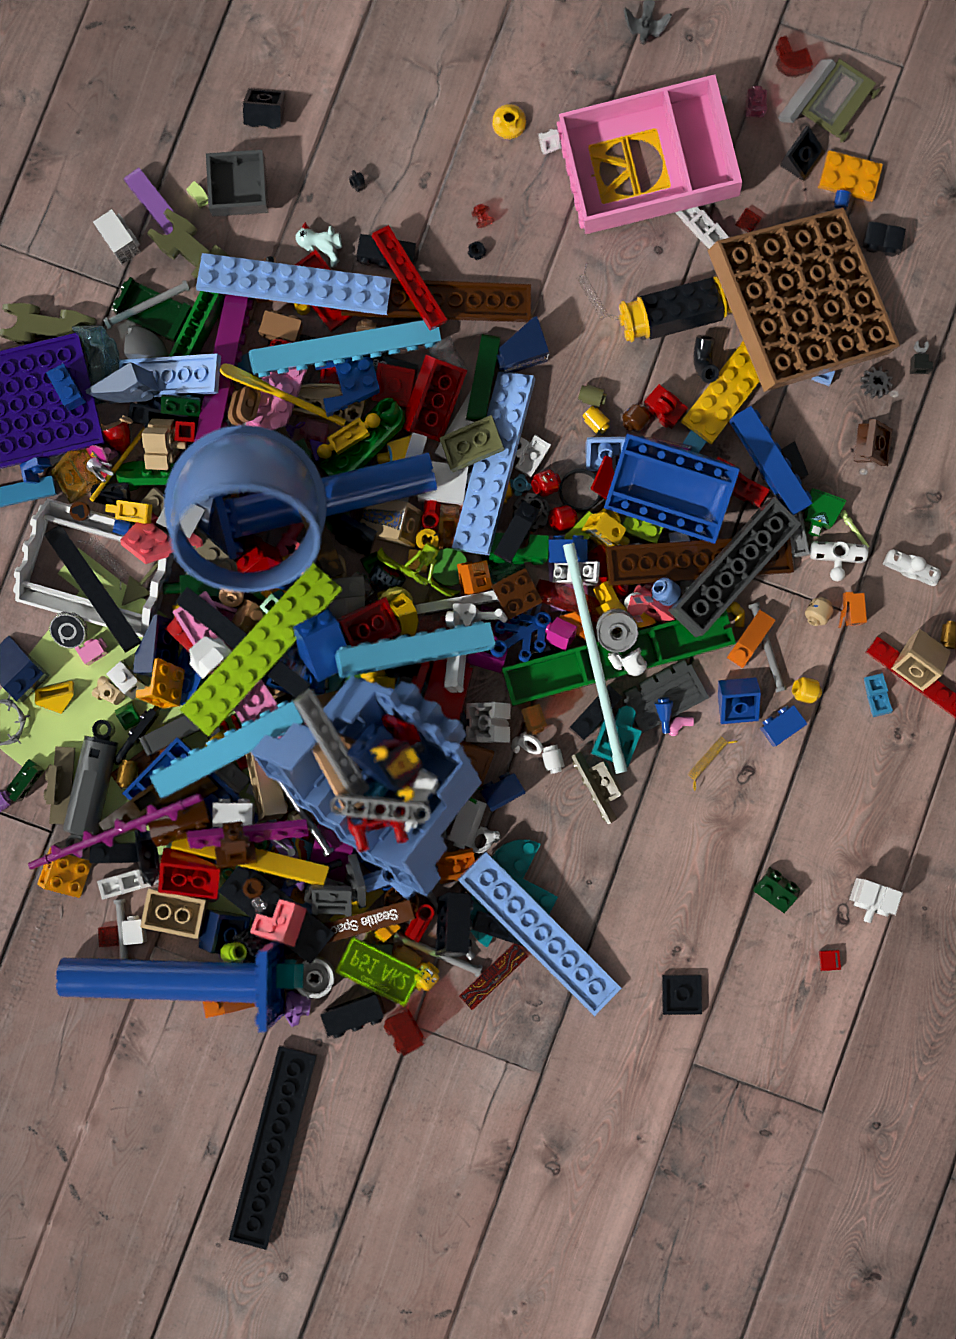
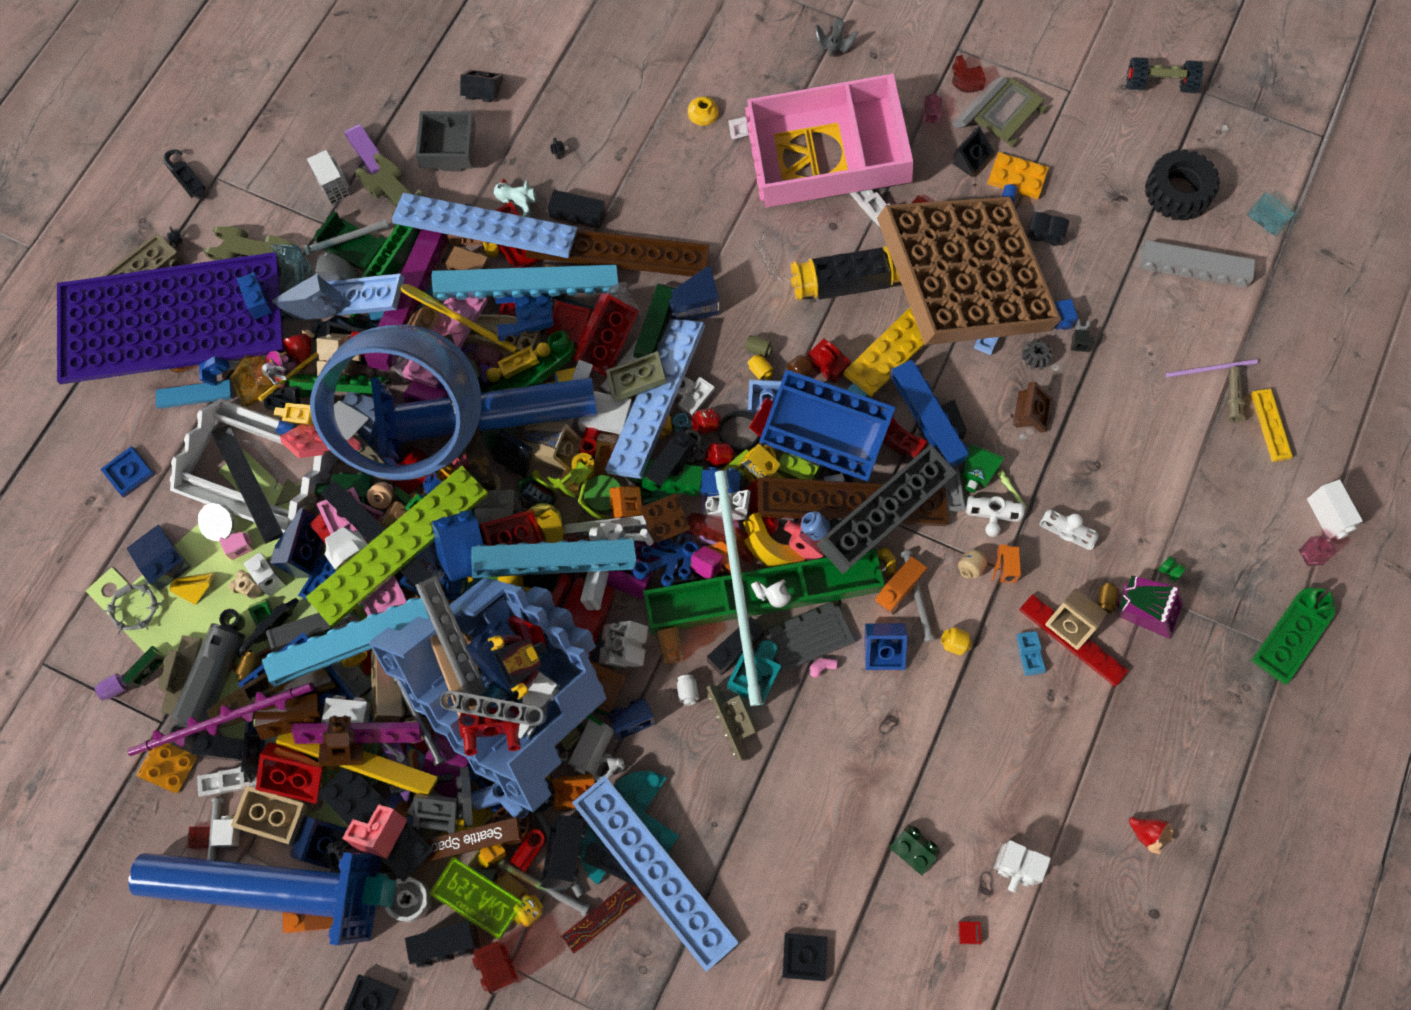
camera: 10 degrees right, 15 degrees down
(79, 511) = (248, 411): reddish brown tile -> none
(165, 685) = (298, 579): light orange bracket -> none
(181, 405) = (359, 318): dark green bracket -> none
(198, 194) = (409, 149): yellowish green piece -> none
(233, 952) = (323, 861): lime brick -> none
(253, 888) = (354, 791): reddish brown tile -> none
(259, 905) = (357, 810): clear piece -> none
(295, 1007) = (383, 930): medium lavender piece -> none
(409, 277) = (593, 227): red plate -> none
(480, 211) = (668, 181): clear red wheel -> none
(481, 250) = (661, 209): black plate -> none
(522, 741) = (658, 669): white piece -> none
(621, 641) = (754, 569): light grey wheel -> none
(637, 604) = (786, 536): piece -> none
(664, 710) = (807, 648): blue cone -> none
(694, 783) = (873, 689): yellow piece -> none
(703, 358) = (869, 320): black cylinder -> none
(783, 725) = (929, 675): blue brick -> none
(905, 336) = (1067, 314): none -> blue brick

